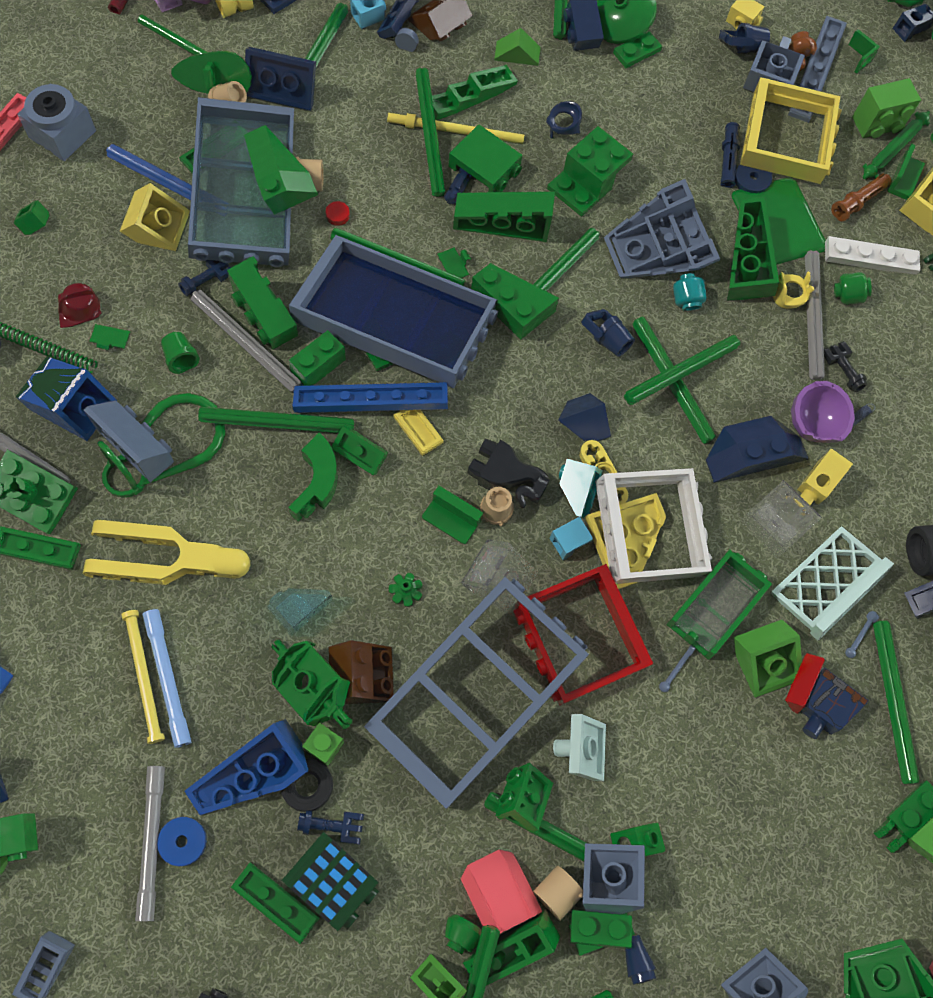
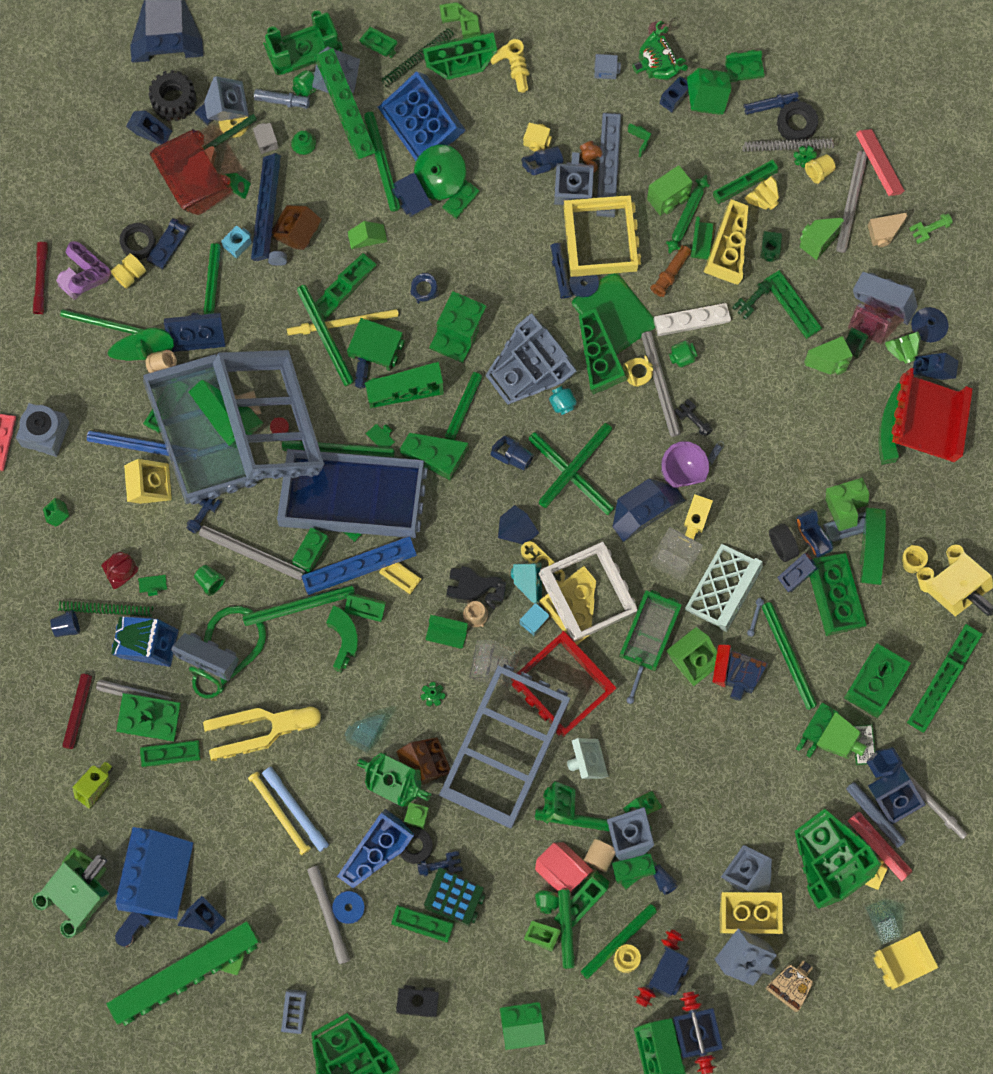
camera: 10 degrees left, 5 degrees up
(261, 304) = (255, 523): green wedge -> none
(346, 132) = (268, 360): none -> sand blue window

